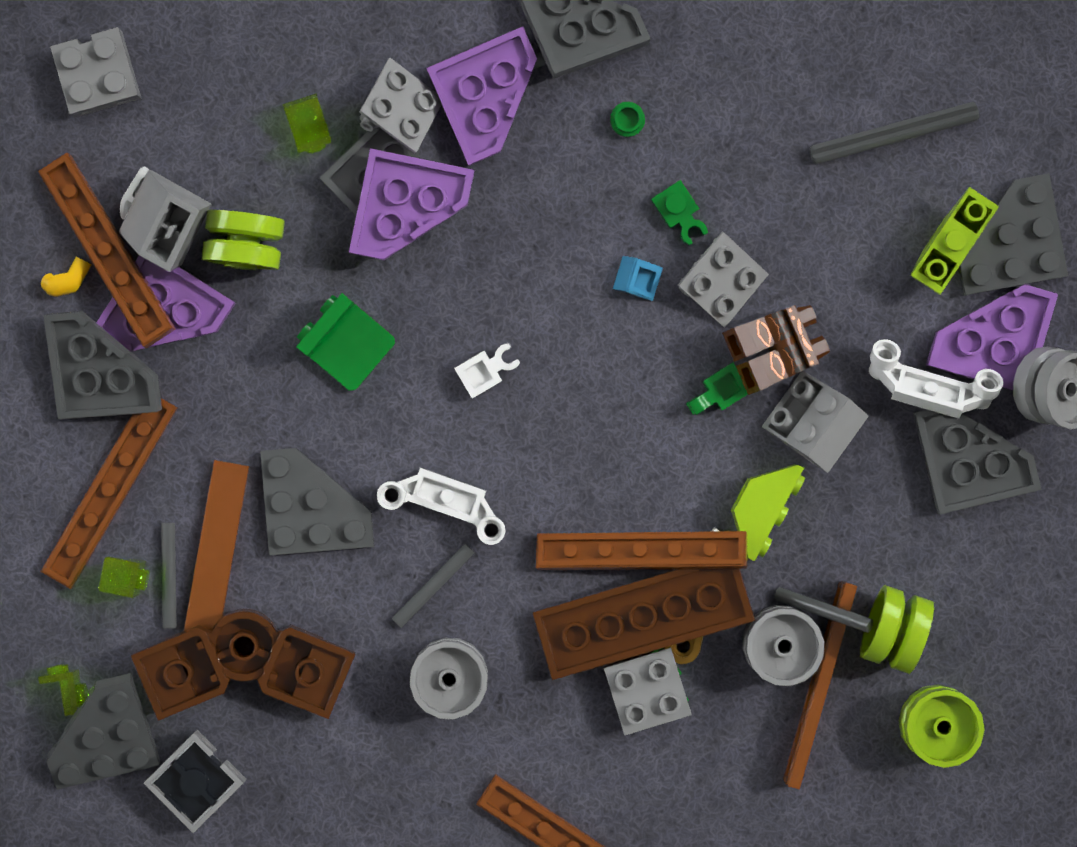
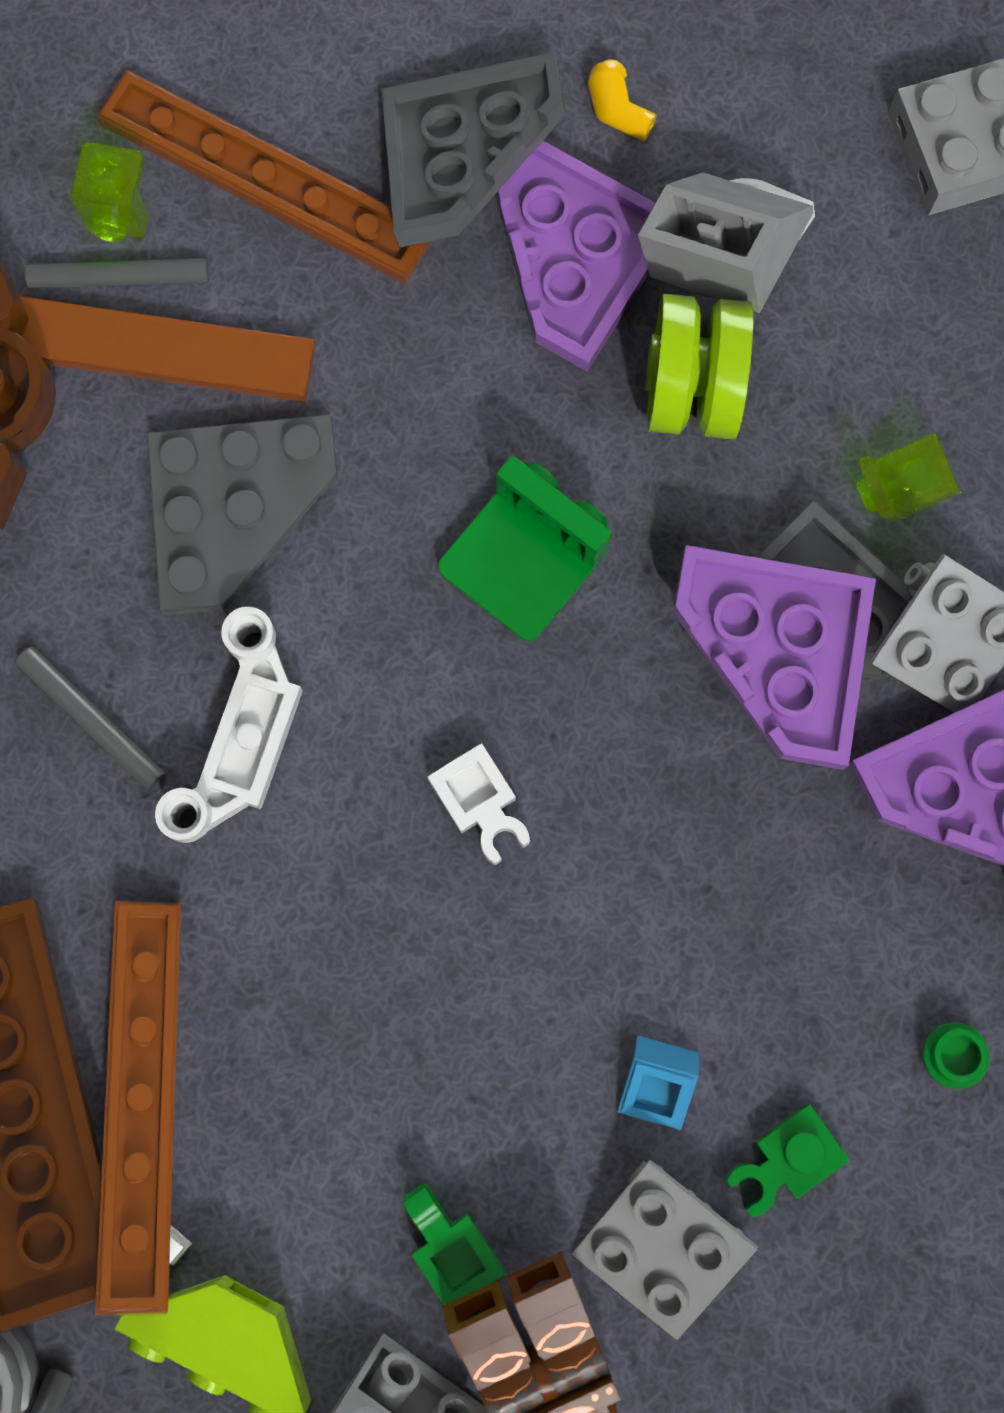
camera: 85 degrees right, 10 degrees down
(106, 250) = (671, 151): dark orange tile -> none

